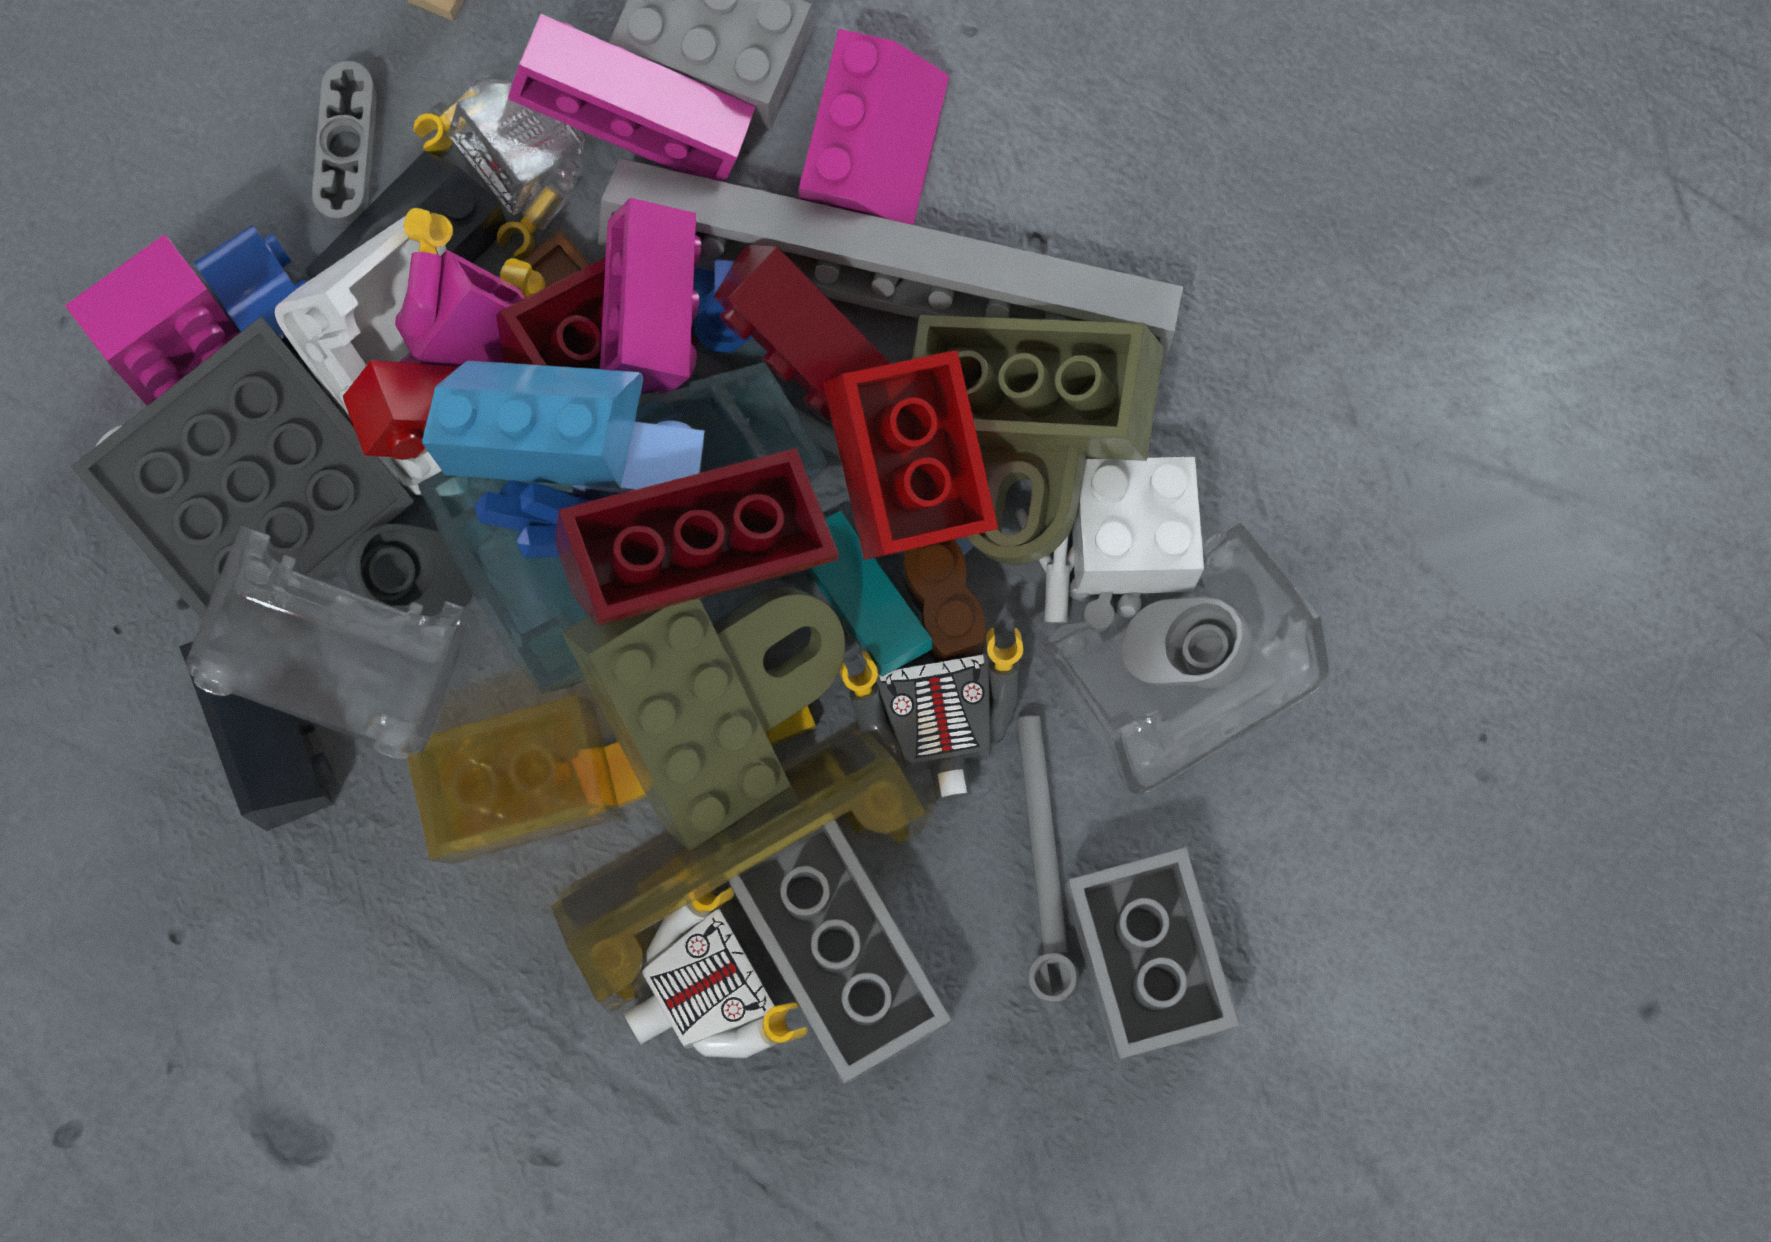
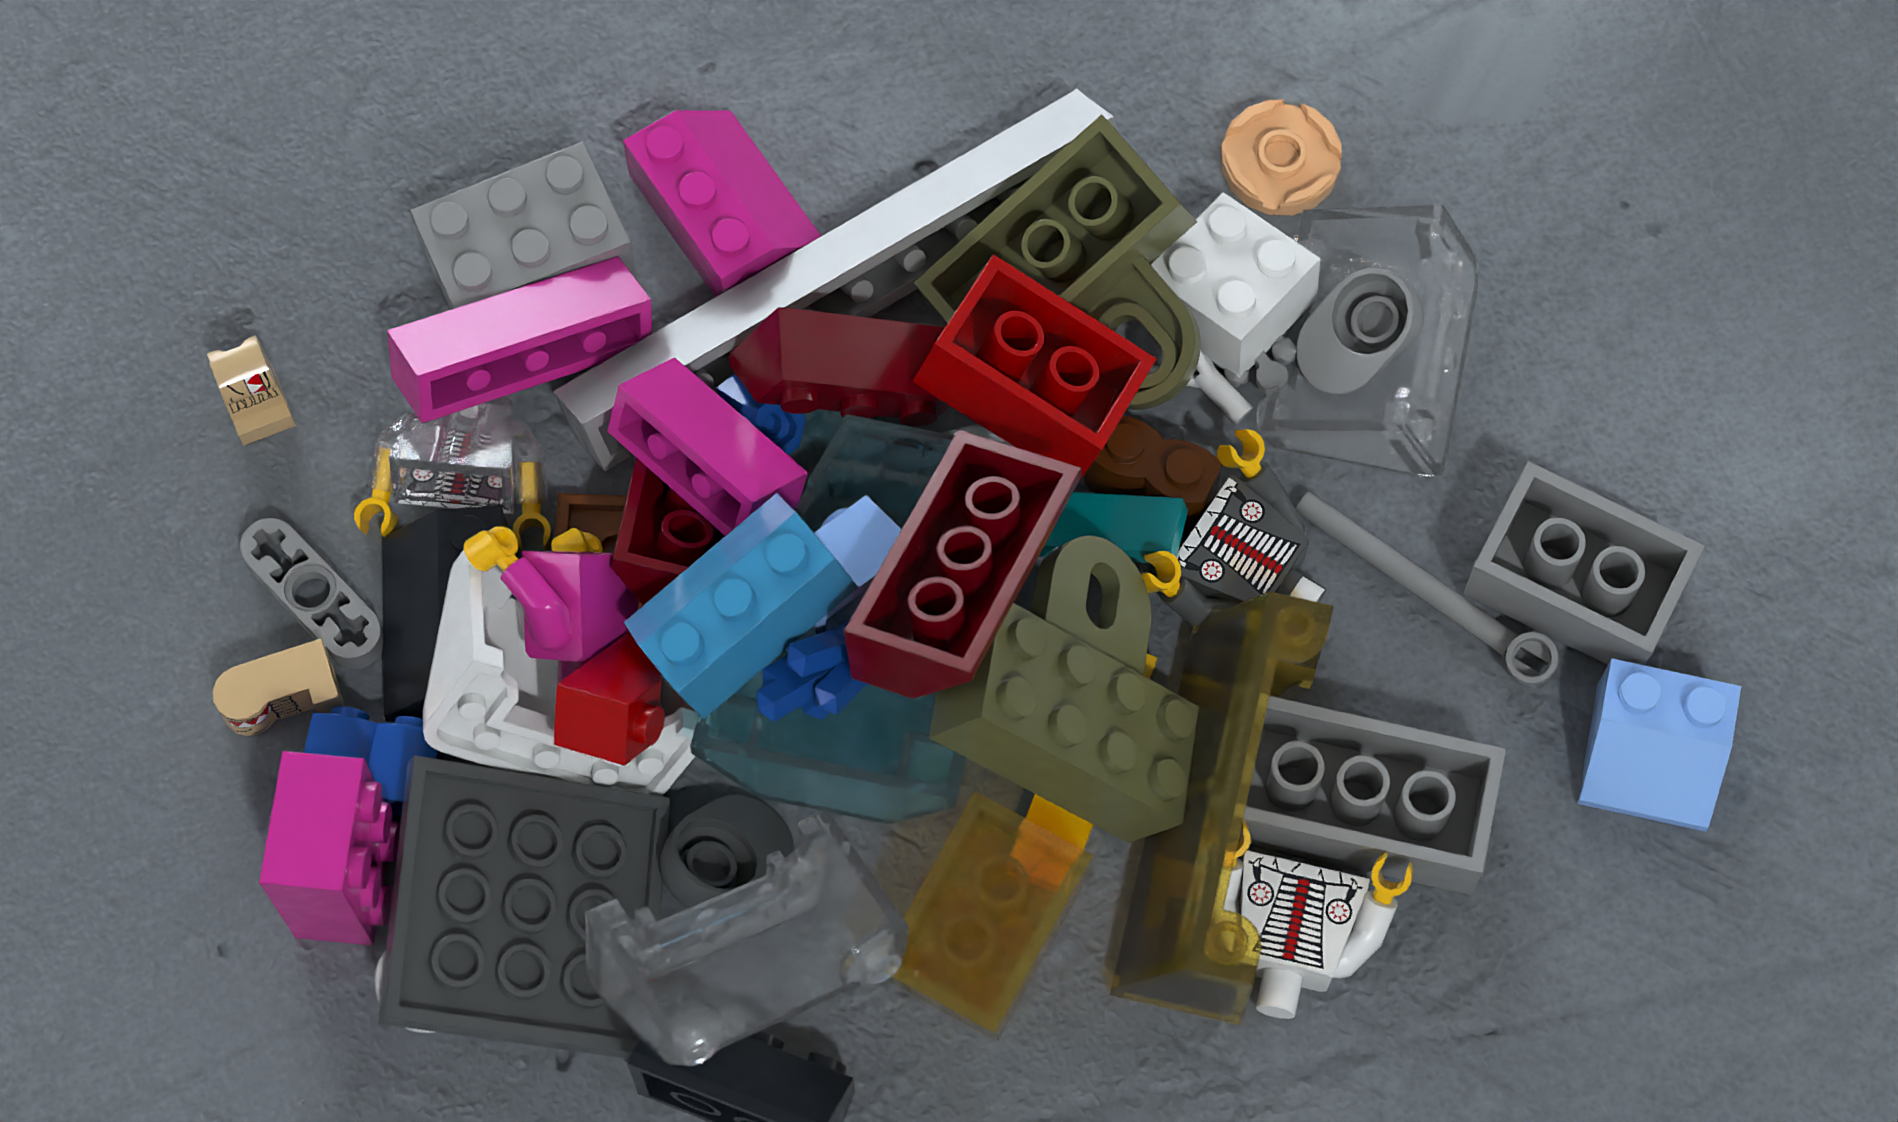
camera: 45 degrees left, 10 degrees down
(248, 180) = (277, 687): none -> tan leg
(1070, 1120) = (1658, 744): none -> light blue slope
(1280, 470) = (1281, 157): none -> light nougat tile

